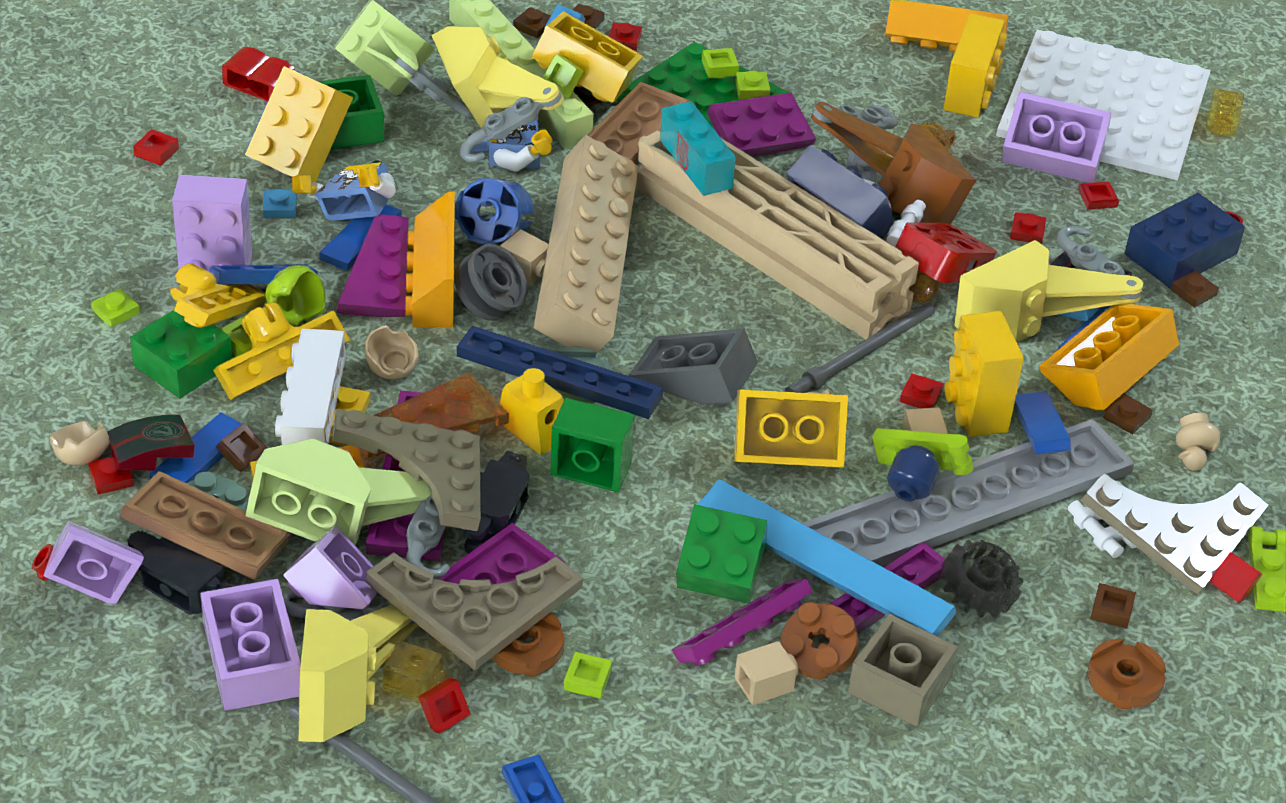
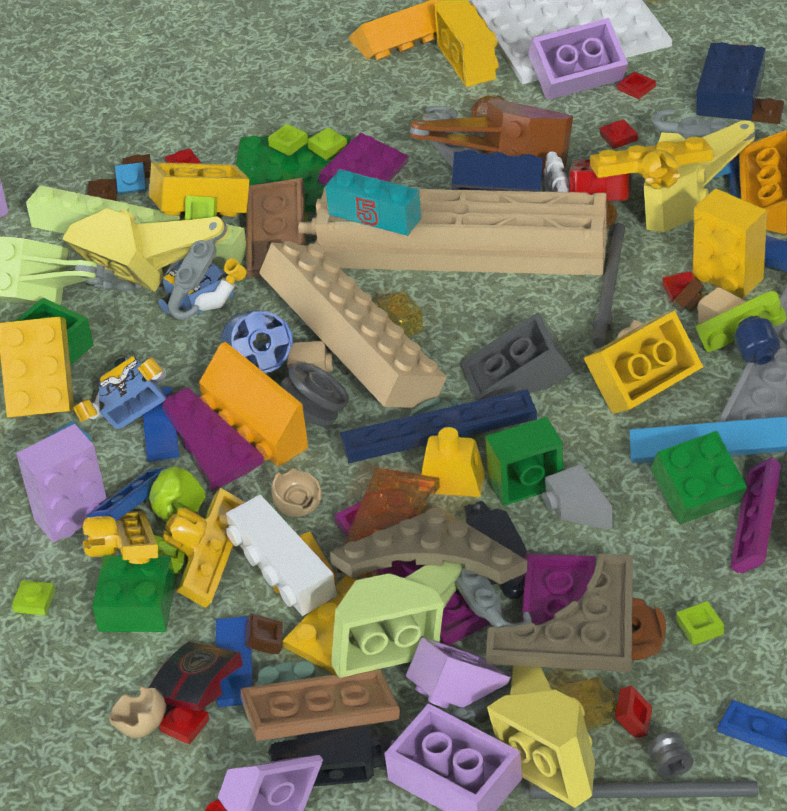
camera: 30 degrees left, 0 degrees up
(432, 759) = (670, 755): none -> flat silver wheel
(608, 505) = (577, 498): none -> light grey slope
(645, 265) = (403, 312): none -> clear yellow brick
(910, 398) = (689, 296): none -> reddish brown plate
(985, 259) = (655, 163): none -> yellow plate

